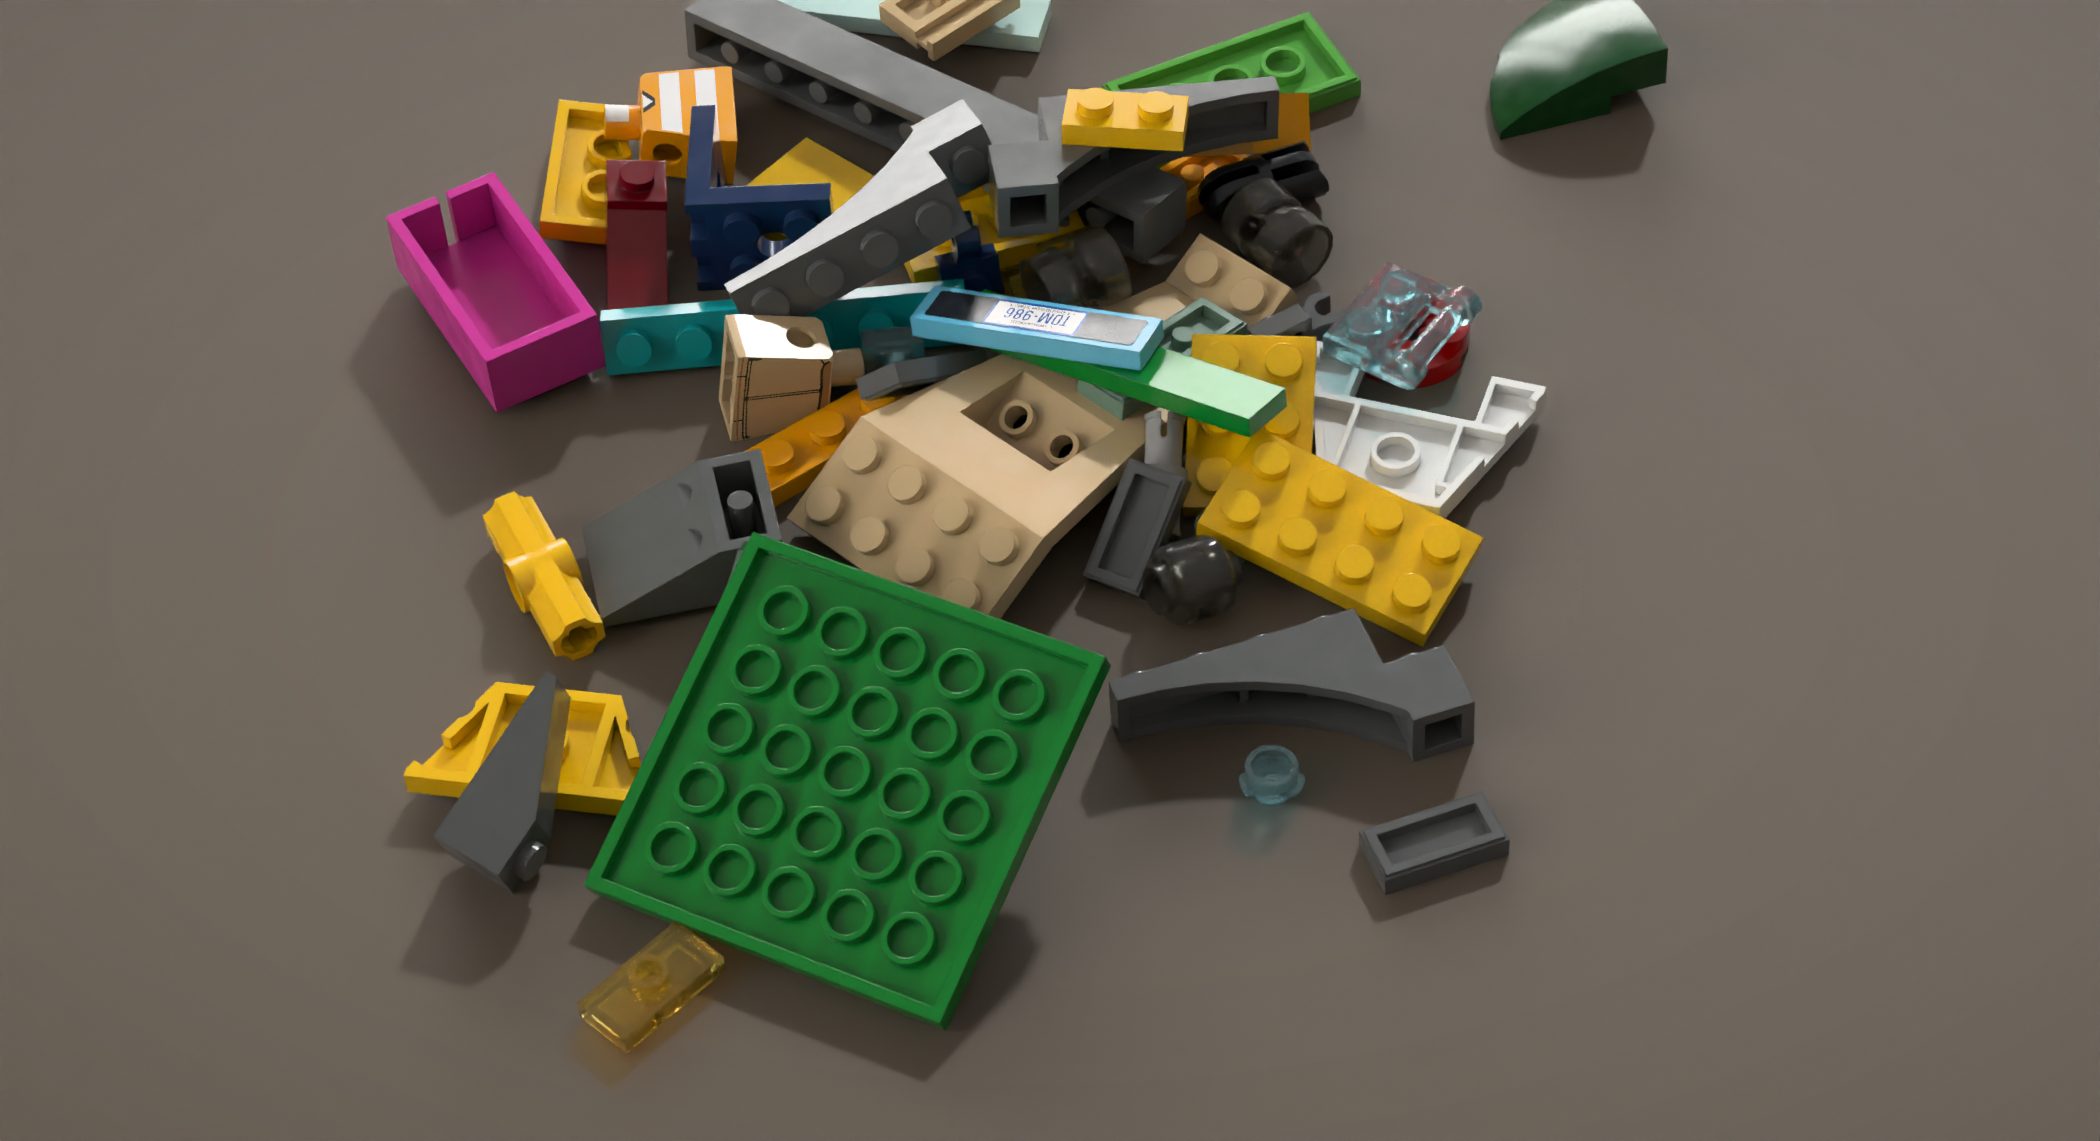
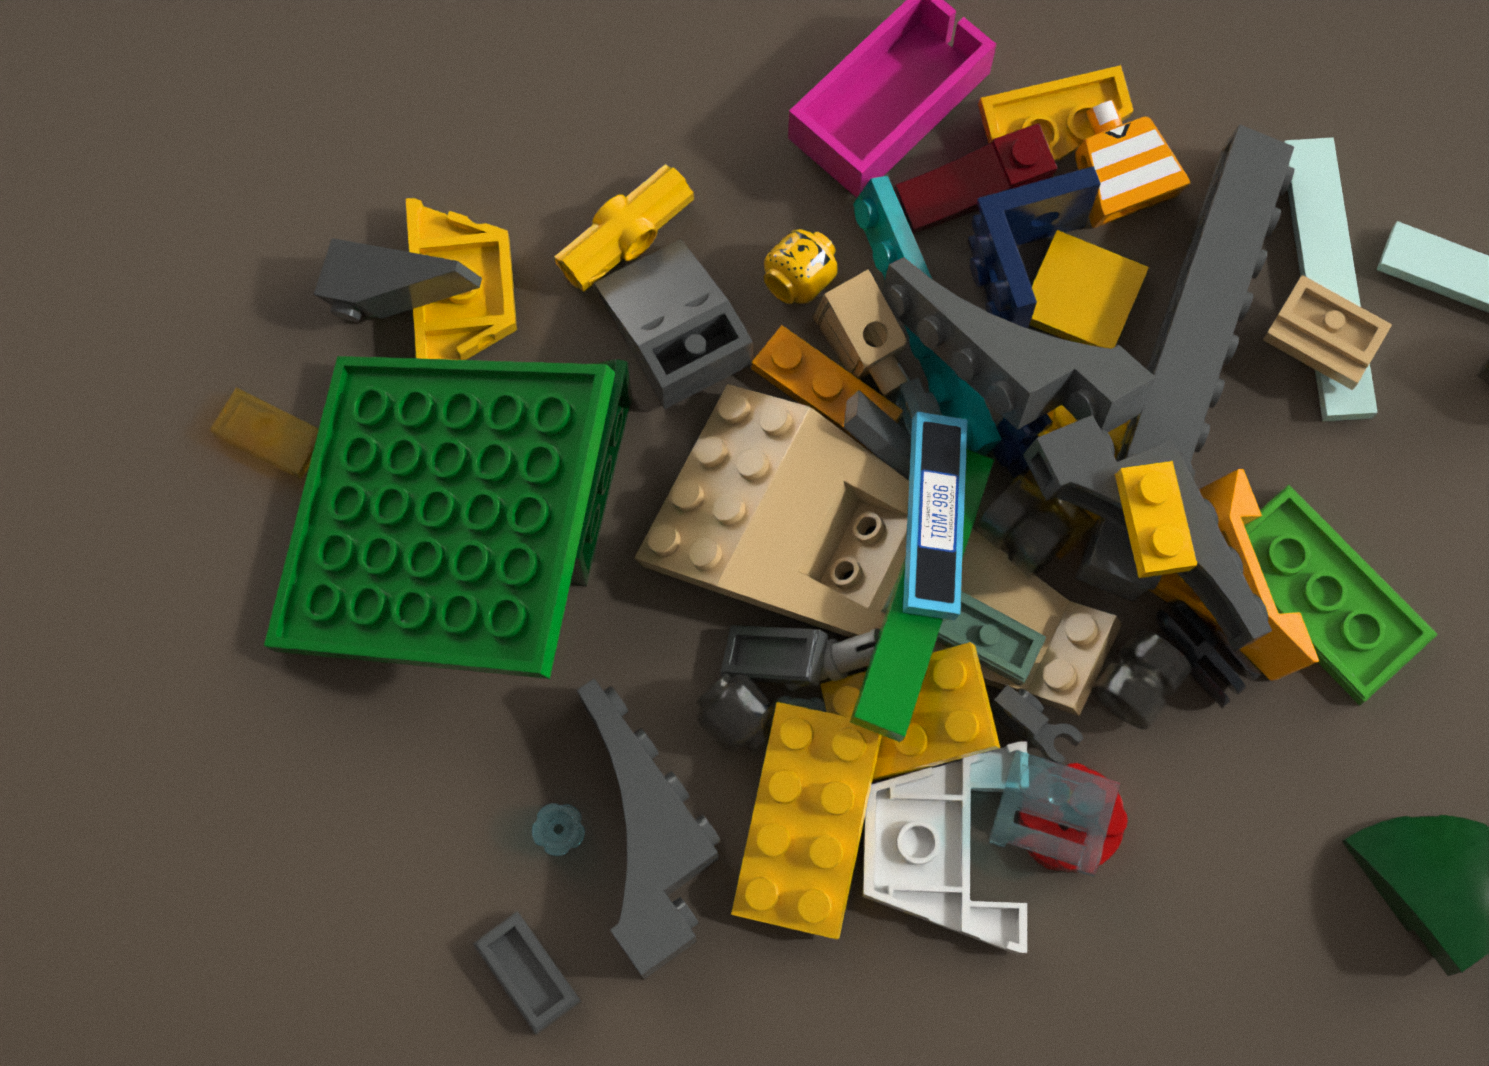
camera: 70 degrees right, 25 degrees up
(672, 419) = (800, 266): none -> yellow head

